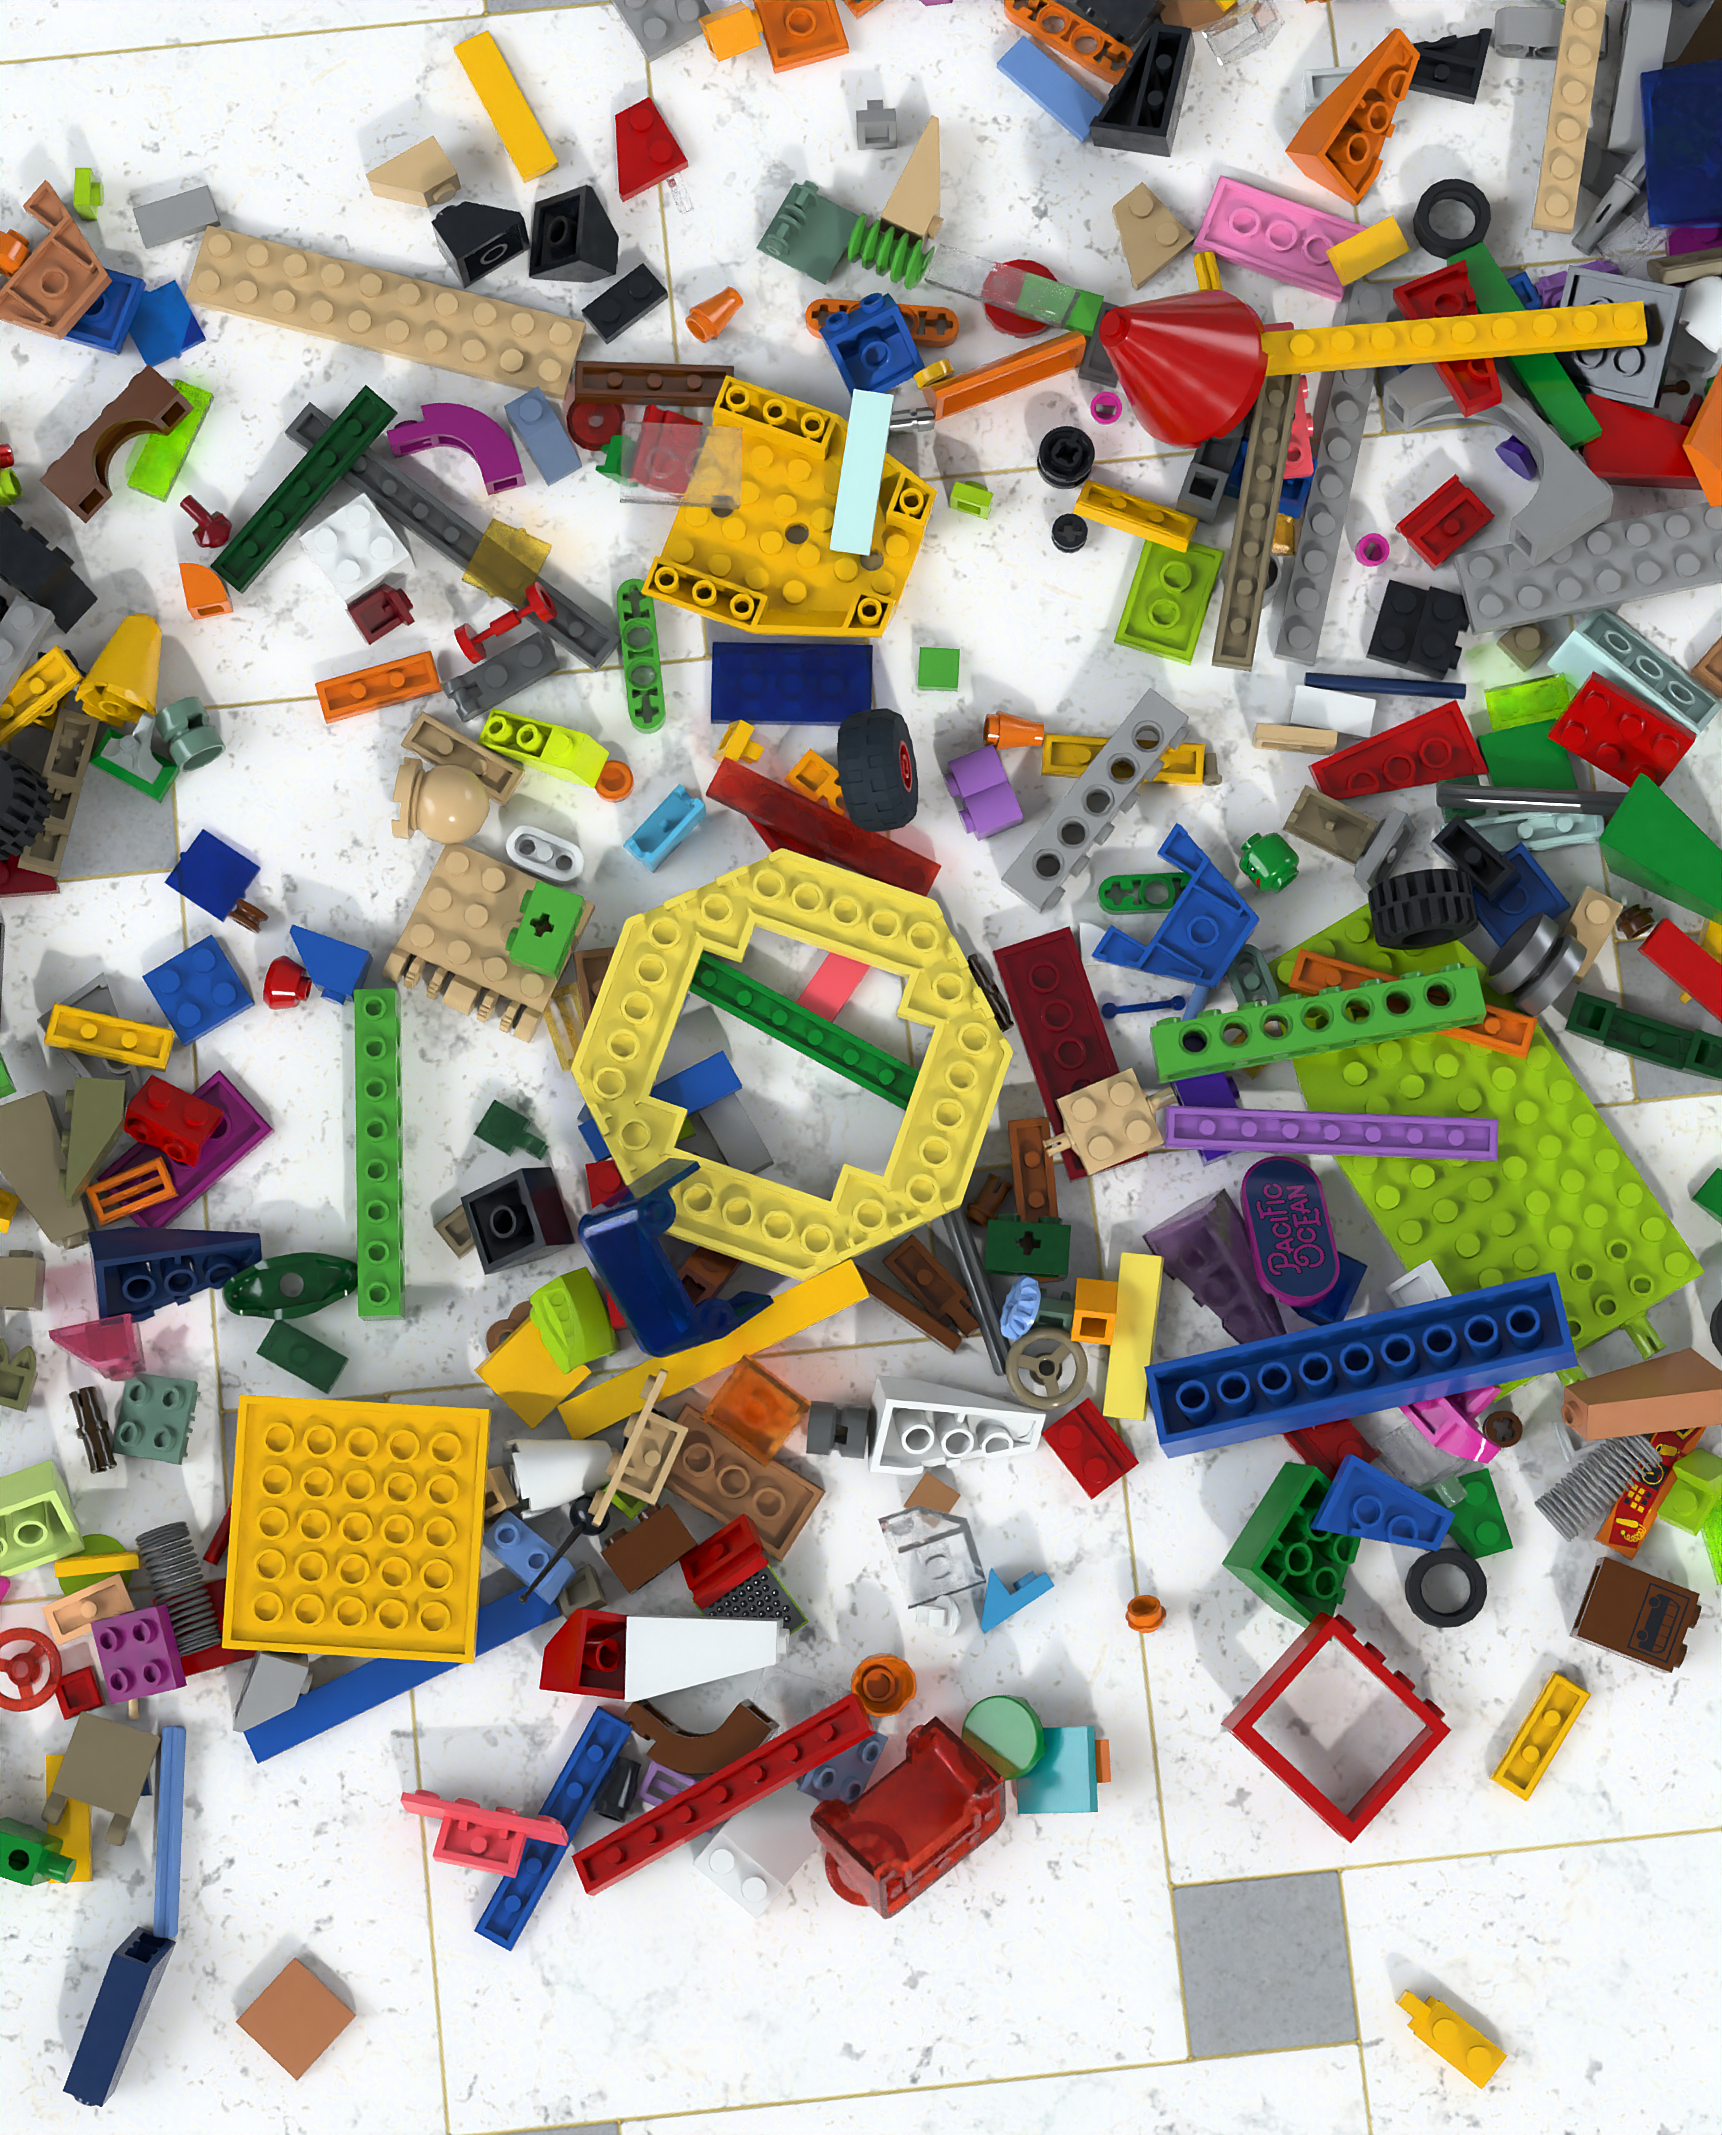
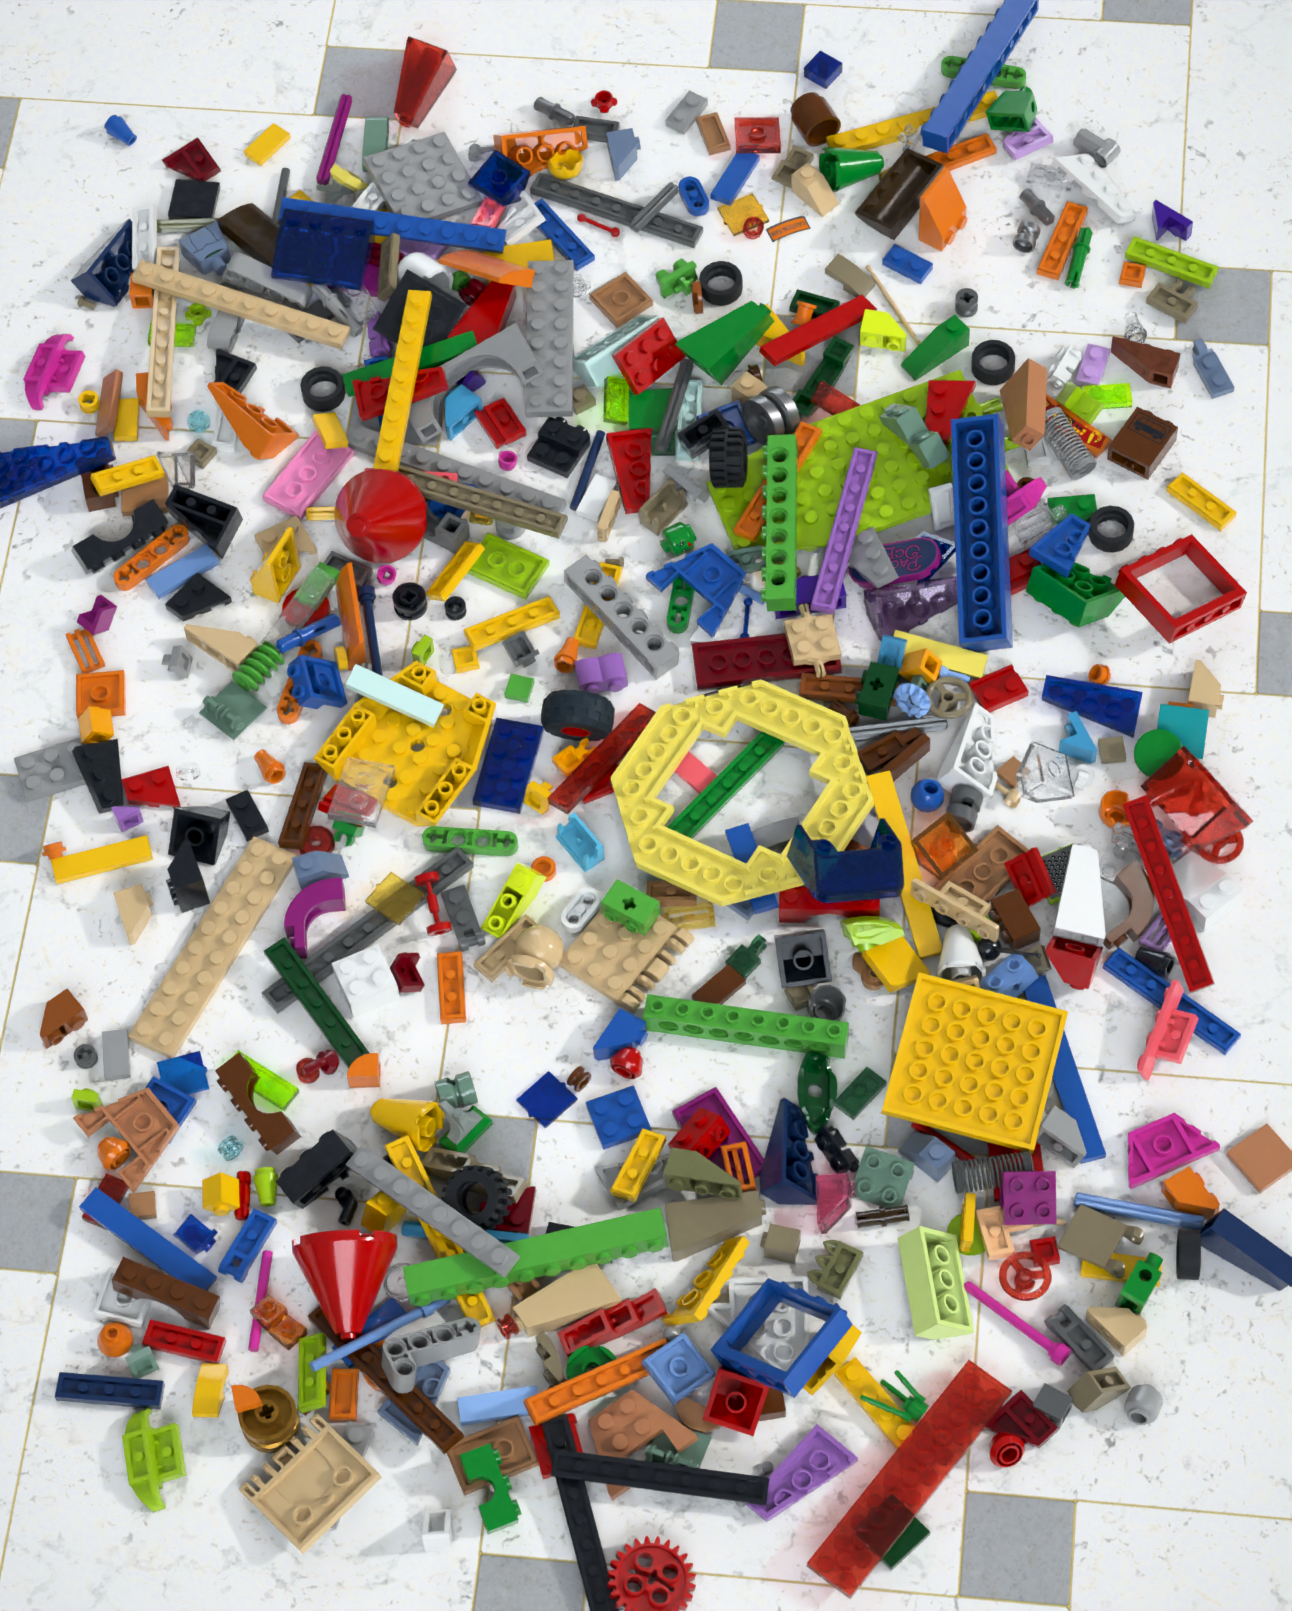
camera: 75 degrees left, 20 degrees down
(44, 423) = (230, 1148): none -> clear light blue bush
(90, 1922) = (1188, 1254): none -> black tyre
(154, 176) = (89, 1050): none -> dark grey bush
(180, 1347) = (830, 1143): none -> black hinge
(197, 491) = (307, 1079): none -> clear red bush
(203, 1907) = (1187, 1194): none -> orange slope
(205, 1481) = (928, 1155): none -> sand blue slope
(218, 117) = (60, 1018): none -> dark orange slope
(283, 1856) = (1164, 1148): none -> dark pink wing
(435, 1274) = (826, 1003): none -> dark grey hair
(446, 1099) = (720, 987): none -> reddish brown tile
(503, 29) = (54, 850): none -> orange plate
(577, 120) = (127, 817): none -> medium lavender slope
(651, 63) = (101, 772): none -> black wing
(851, 1365) = (927, 795): none -> blue piece
(884, 1506) = (1012, 796): none -> tan hand
(965, 310) = (301, 636): none -> blue axle
(977, 571) = (465, 659): none -> yellow tile
(1004, 655) = (520, 650): none -> dark grey bracket
(1007, 123) = (196, 598): none -> black wing
(1007, 1657) = (1112, 750): none -> dark tan tile
(1055, 629) = (511, 623): none -> yellow tile
(1058, 388) = (366, 597): none -> dark blue piece
(1071, 232) = (277, 568): none -> yellow slope
(1090, 1624) = (1100, 703): none -> clear blue wing
(1099, 1358) = (945, 672): none -> light blue piece
(1101, 1258) = (892, 651): none -> dark azure slope
(1145, 1797) = (1205, 690): none -> tan slope
(1286, 58) = (203, 453): none -> dark tan tile
(1287, 1190) = (871, 559): none -> light grey wing
(1345, 39) = (198, 421): none -> clear light blue plate
(1452, 448) = (460, 410): none -> dark azure slope
(1536, 1216) = (910, 428): none -> sand green arch
(1605, 1067) = (831, 399): none -> clear red tile
(1609, 1258) = (946, 402): none -> red wing

